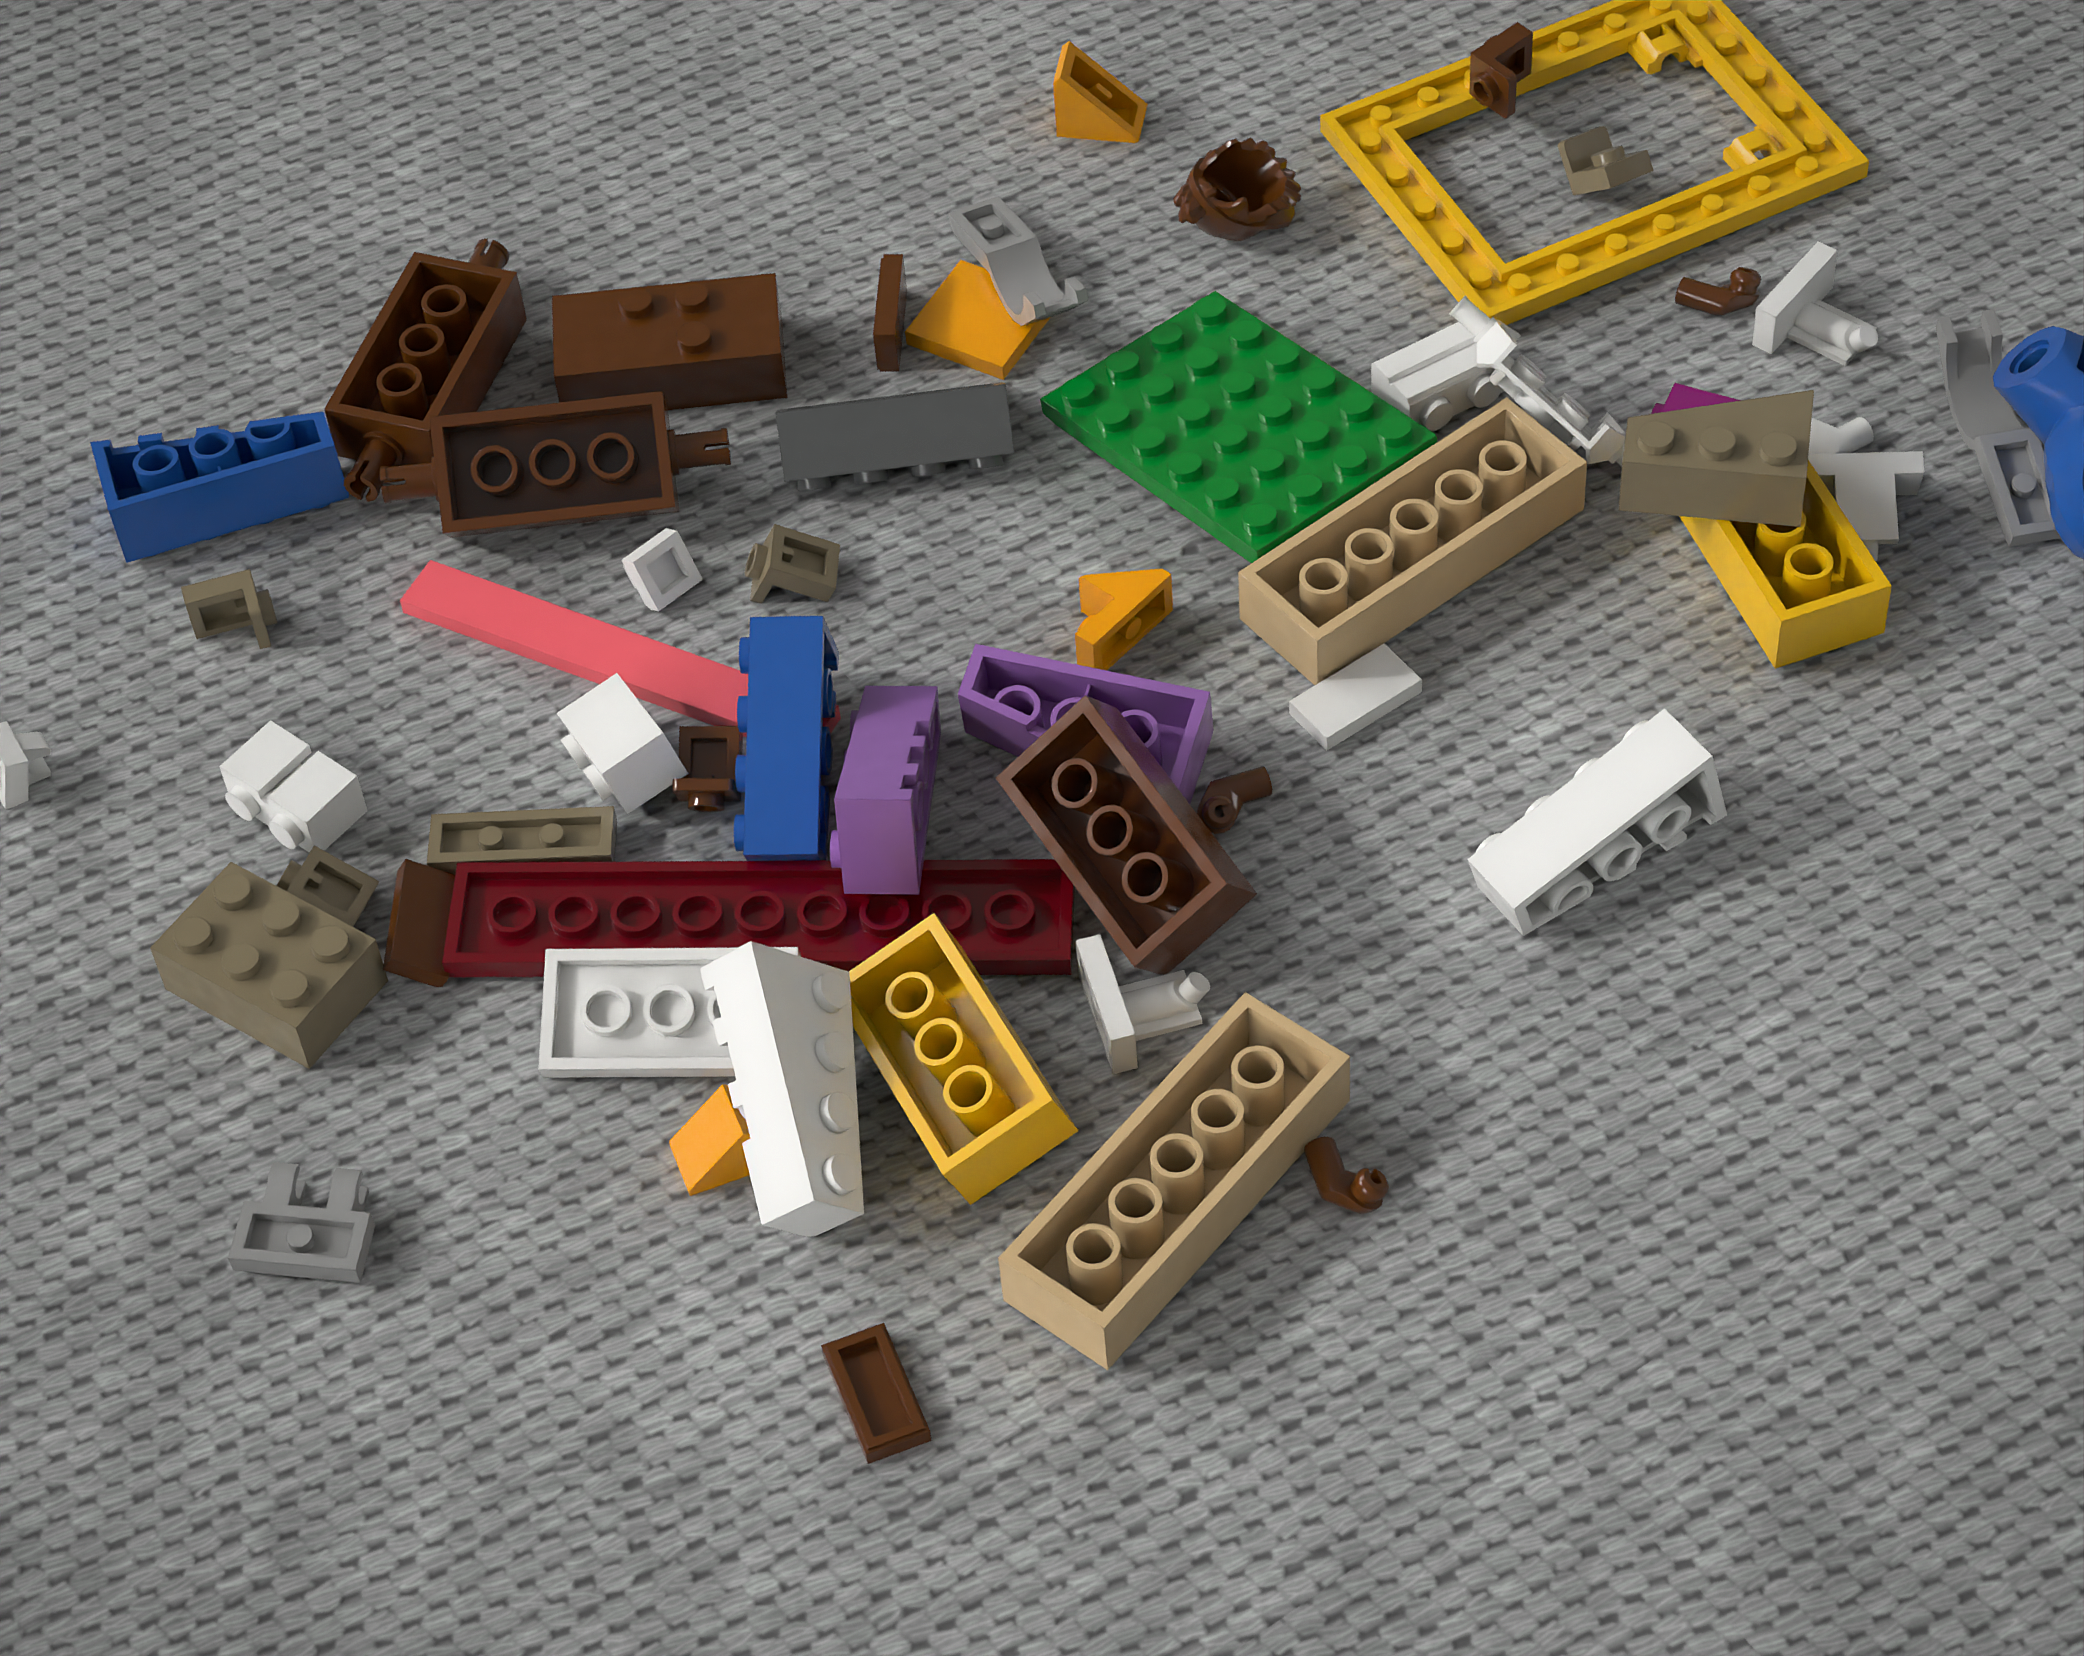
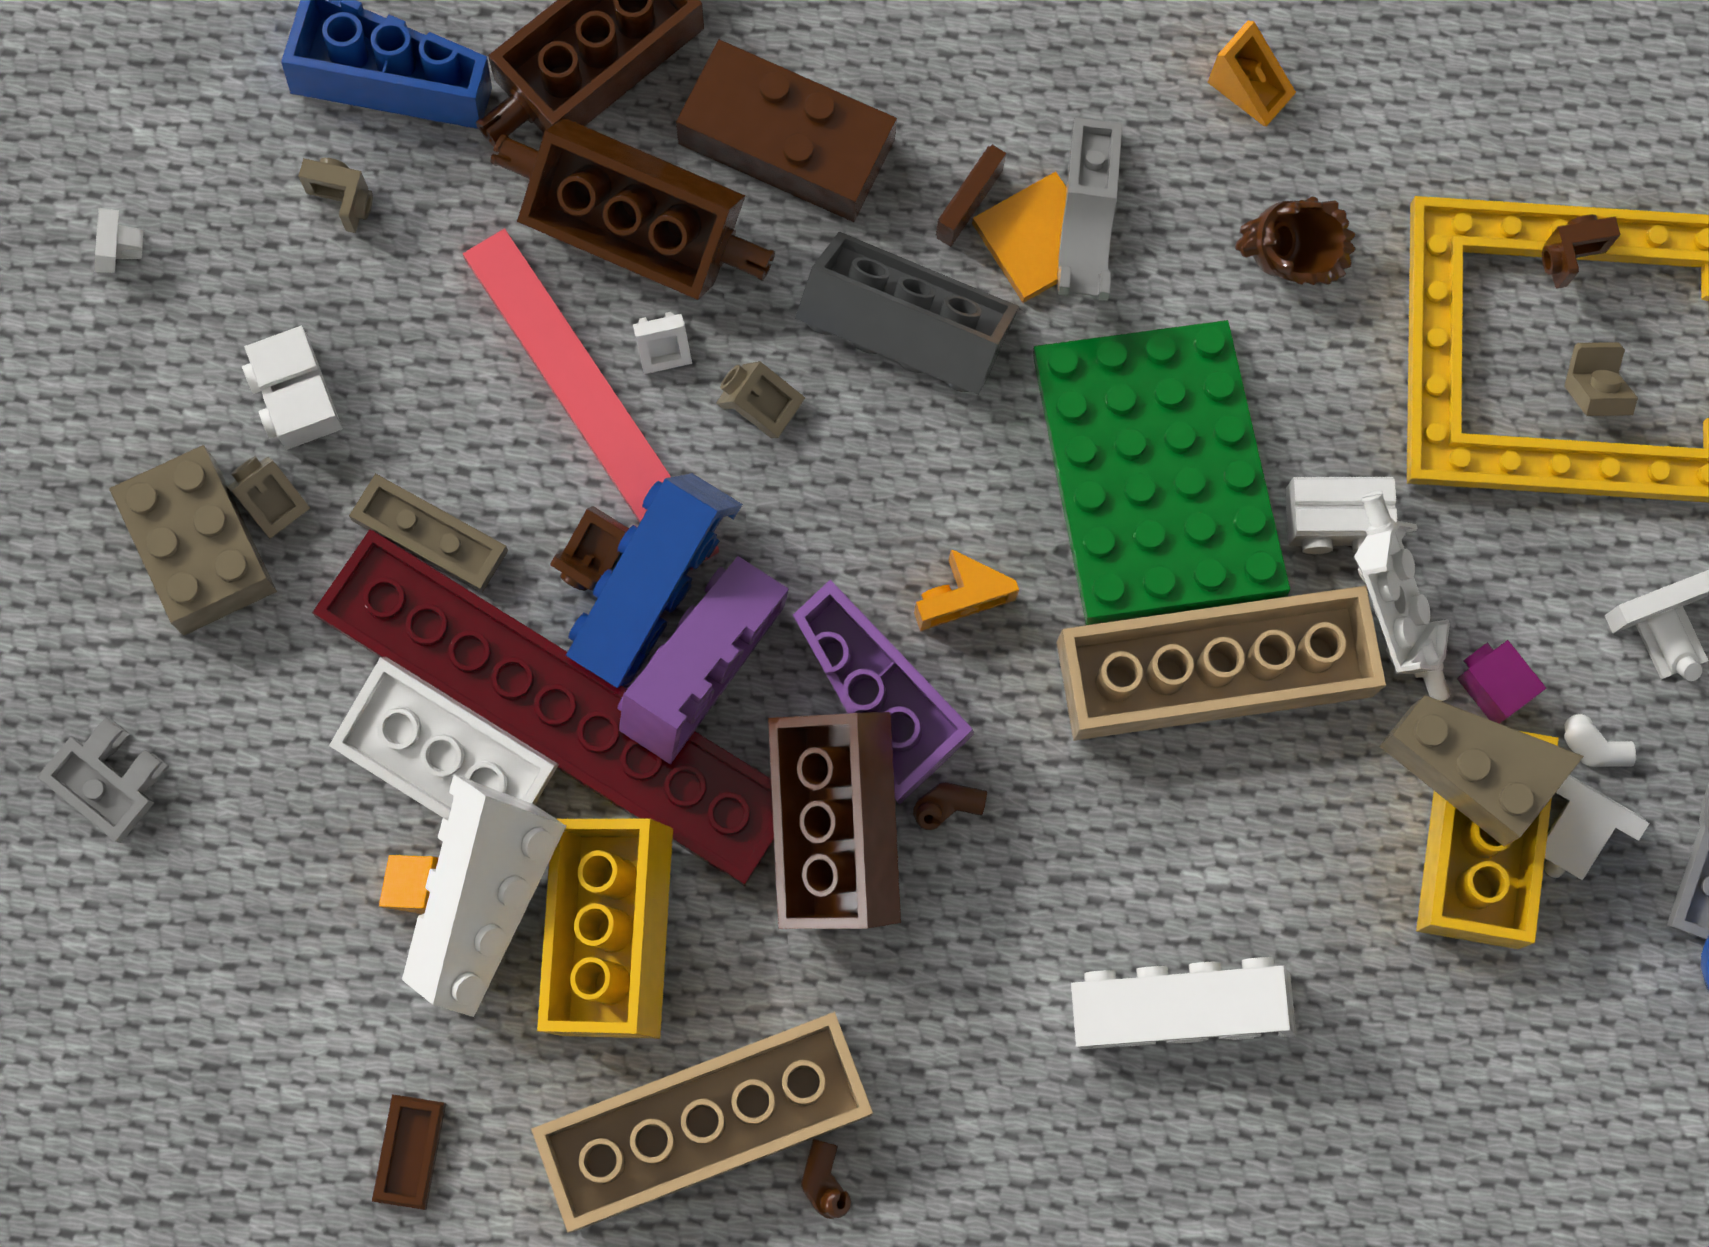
camera: 20 degrees right, 25 degrees up
(419, 923) = (317, 563): reddish brown tile -> none
(620, 743) = (533, 488): white piece -> none
(1138, 1008) = (772, 949): white piece -> none
(1355, 696) = (1095, 766): white tile -> none
(1720, 299) = (1610, 561): reddish brown arm -> none

